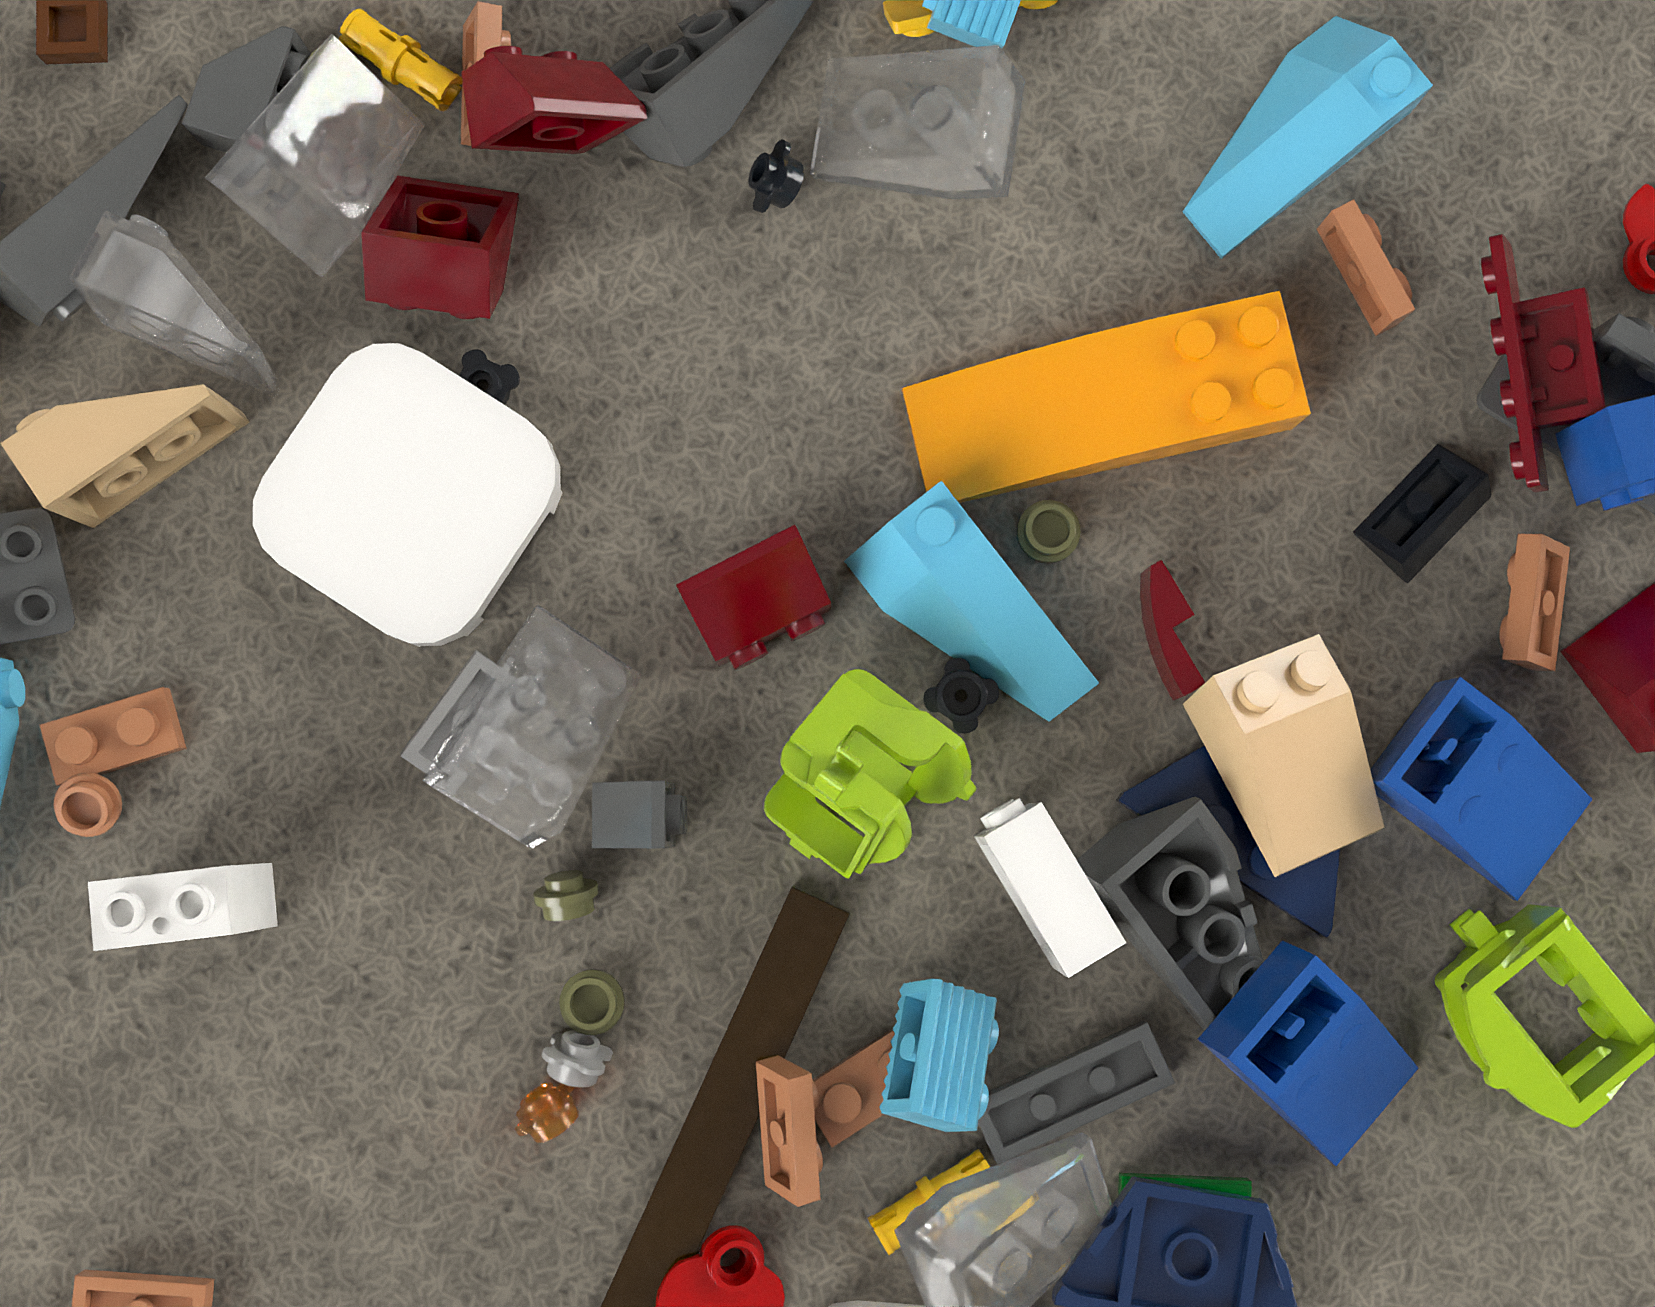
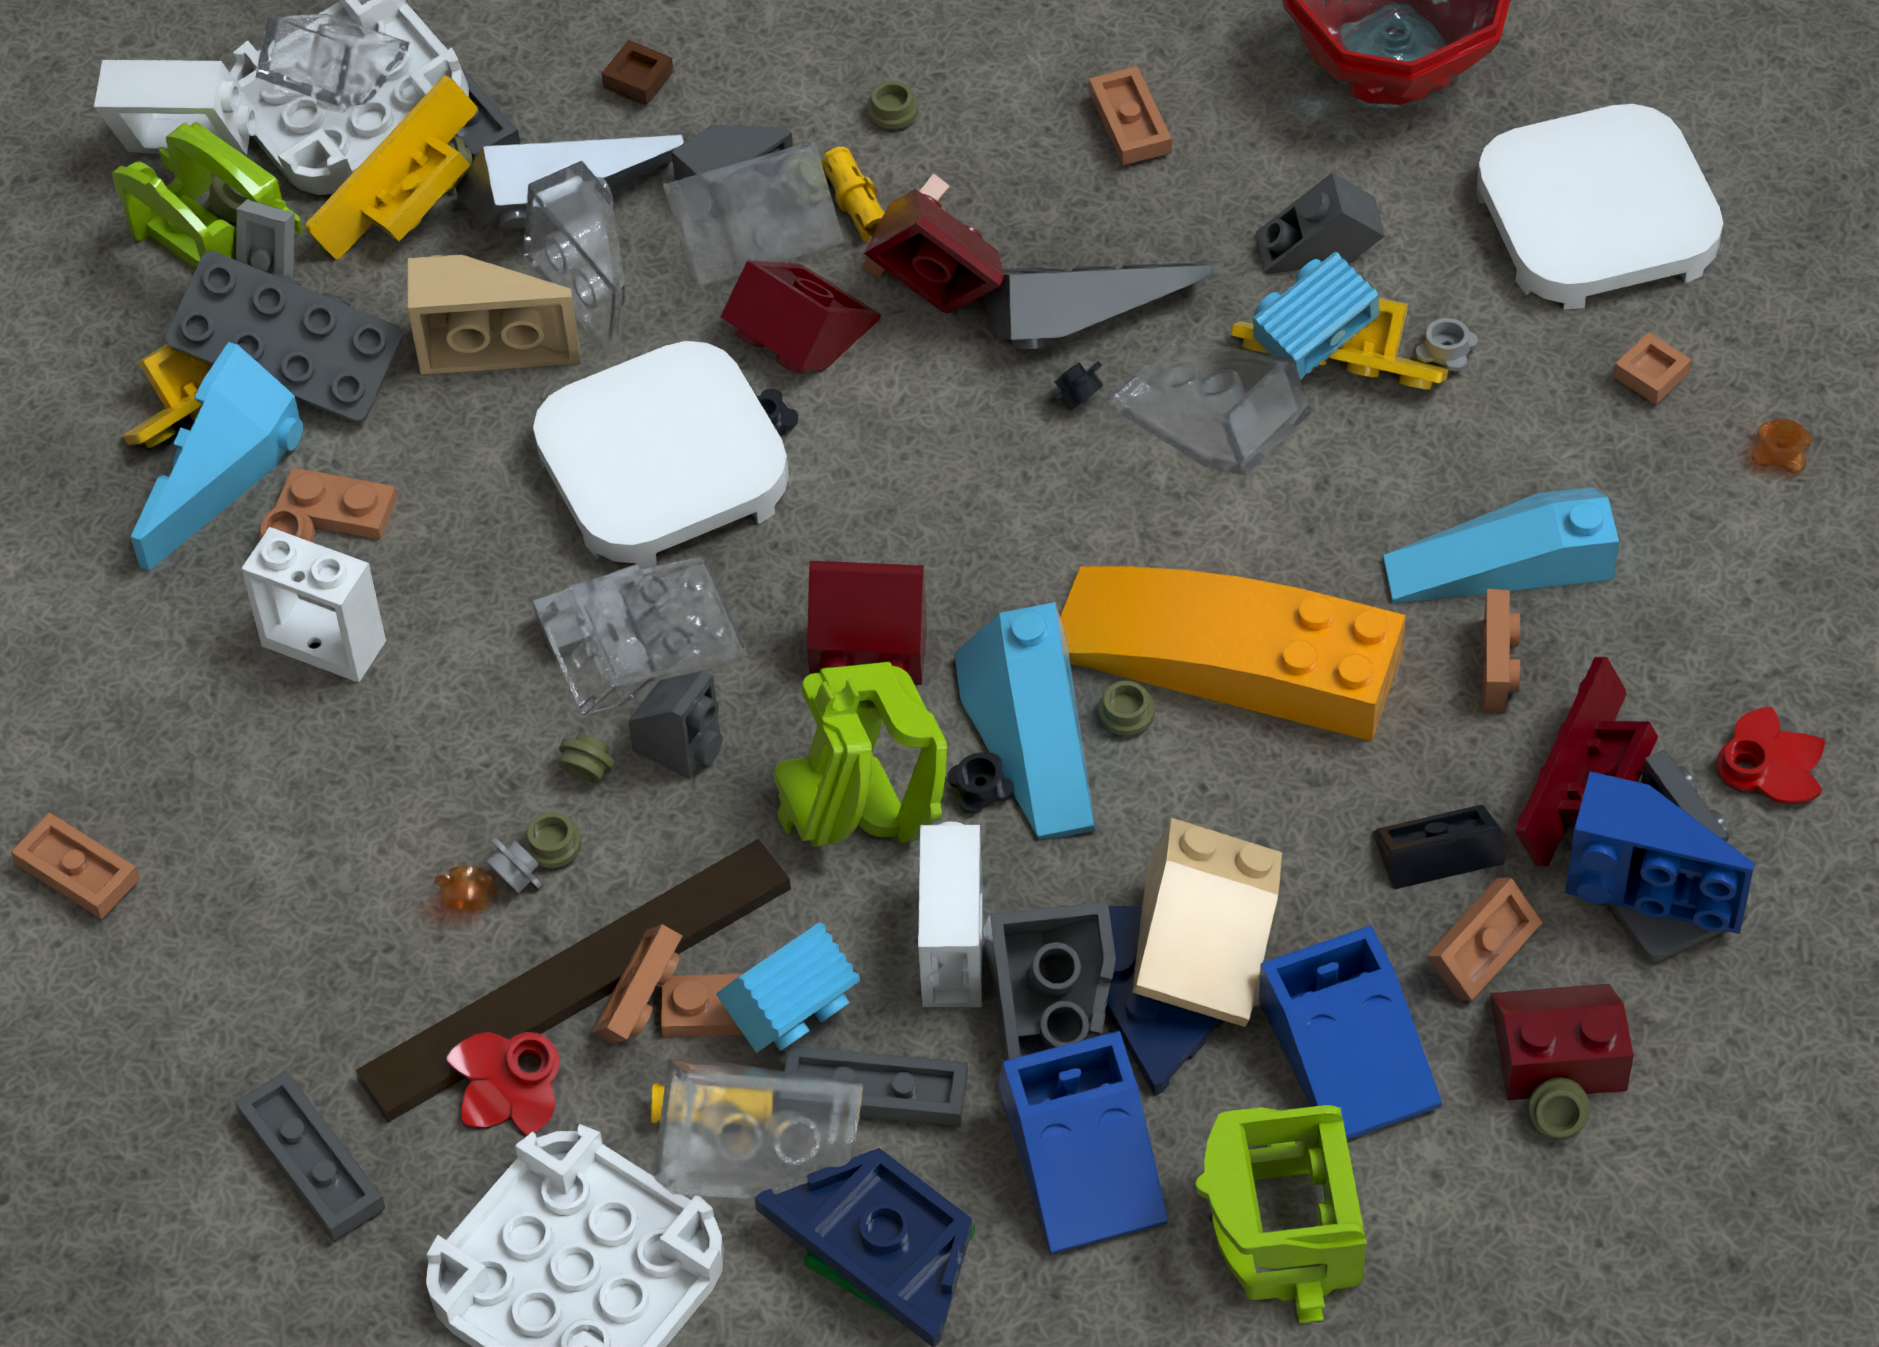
camera: 35 degrees right, 30 degrees down
(1161, 610) = (1173, 797): dark red slope -> none

